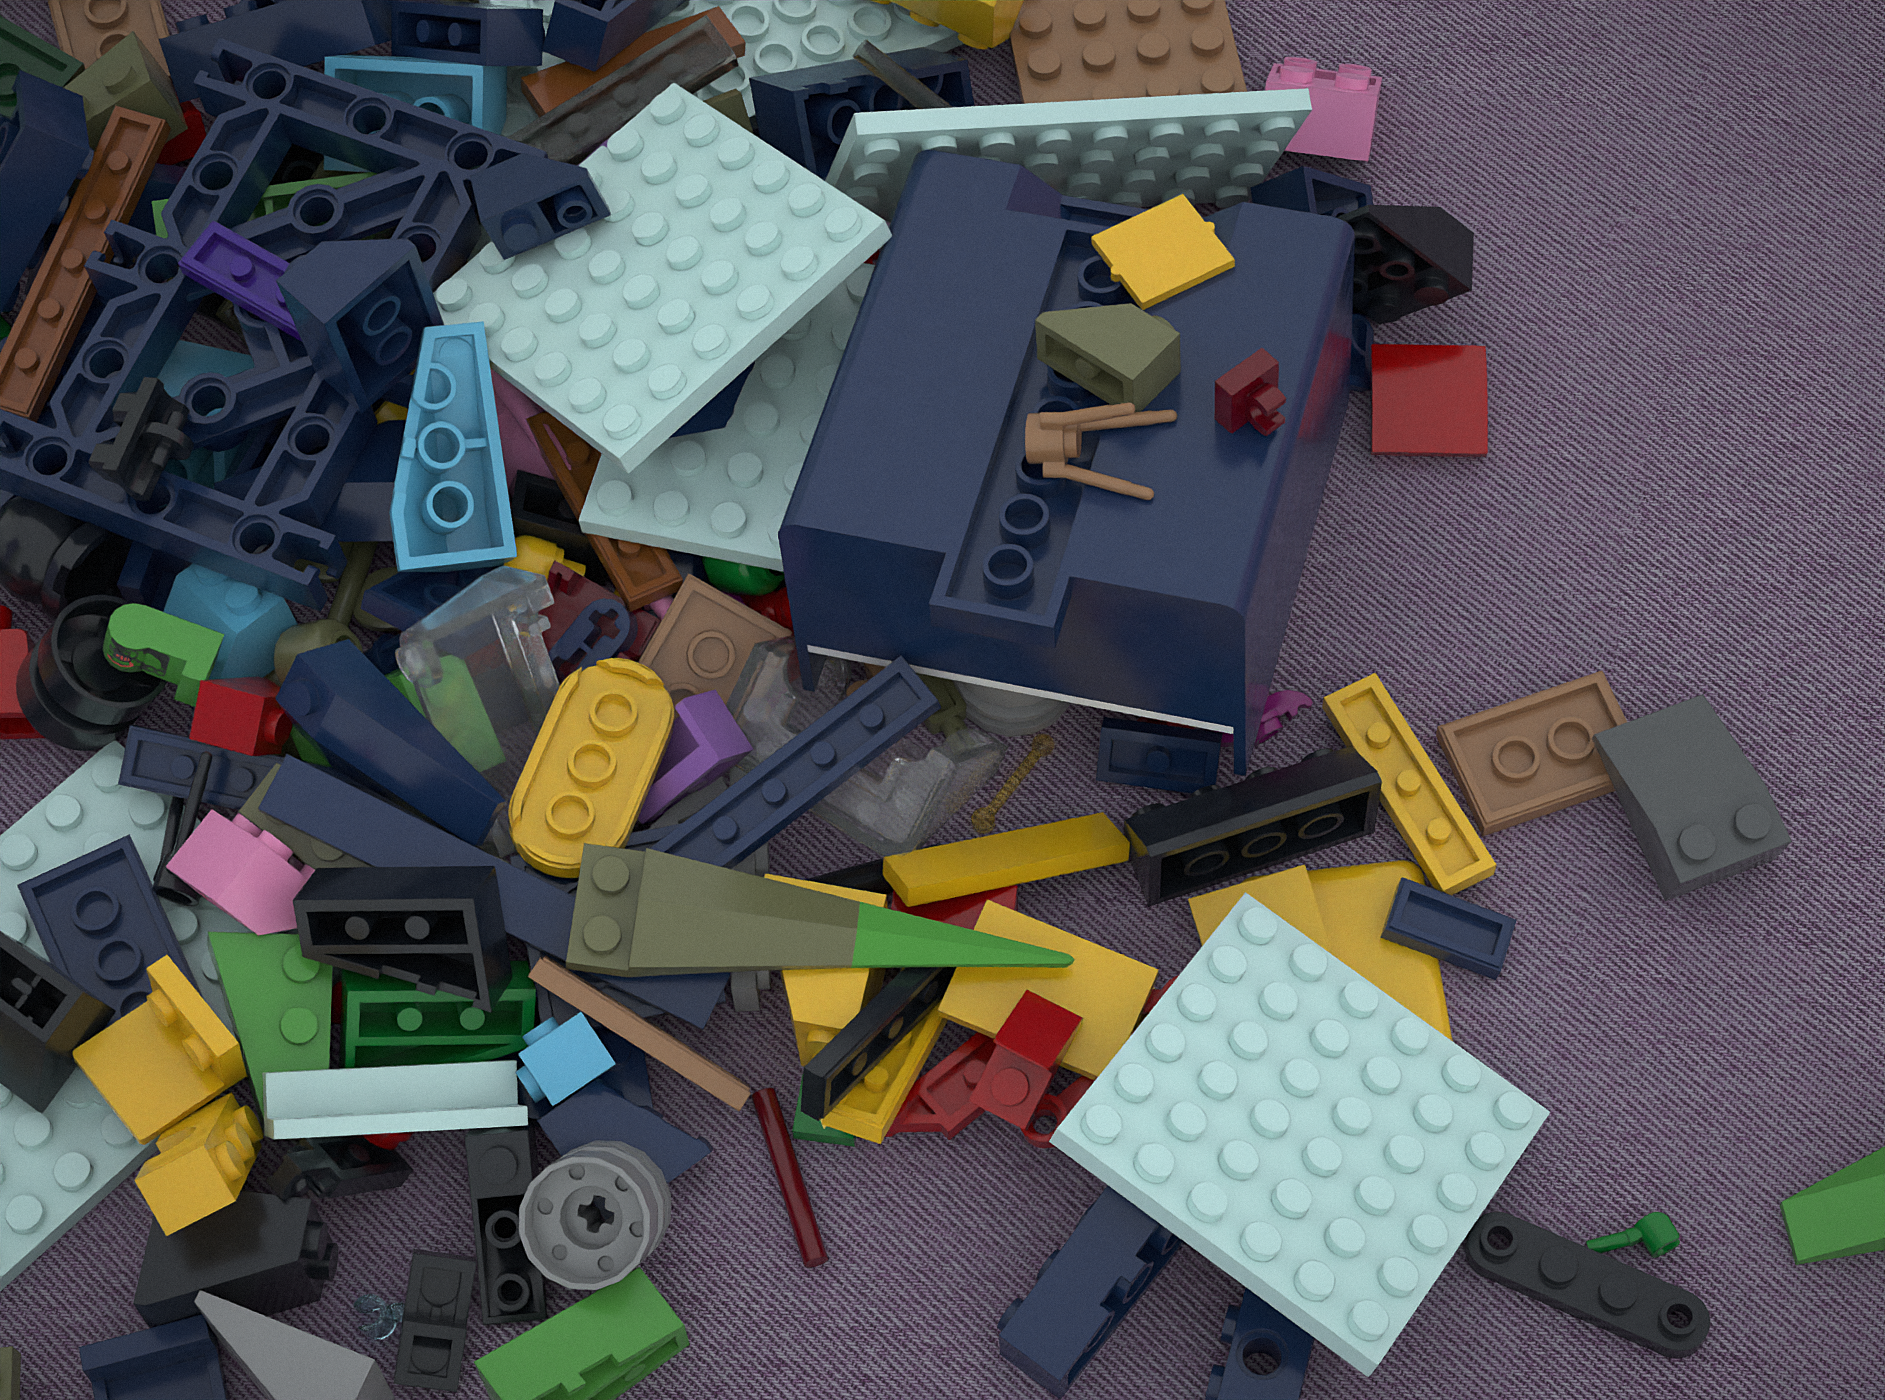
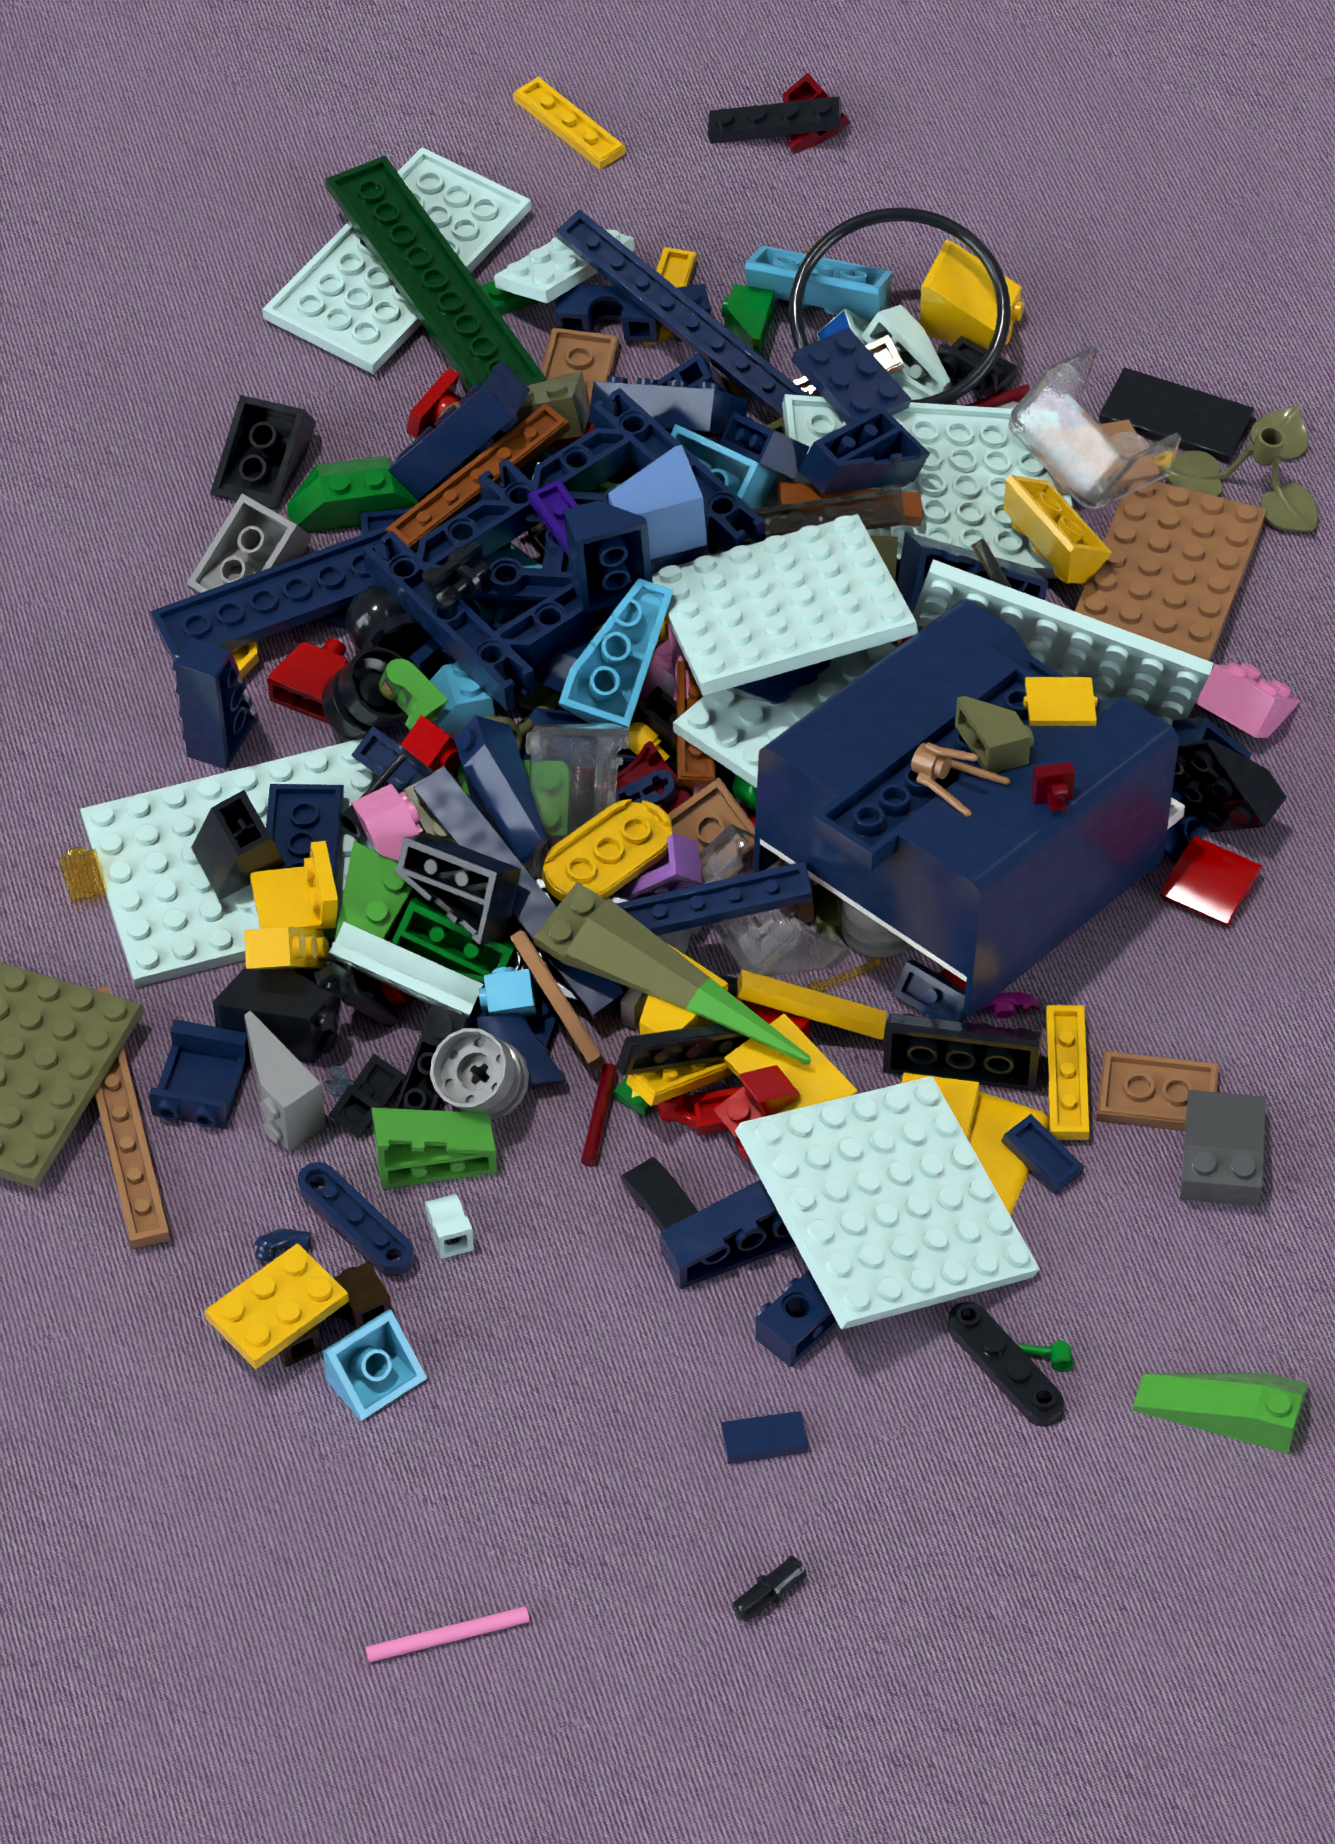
camera: 25 degrees right, 10 degrees down
(401, 188) = (668, 500): none -> medium blue slope
(535, 201) = (737, 540): dark blue slope -> none
(953, 1266) = (658, 1193): none -> black slope

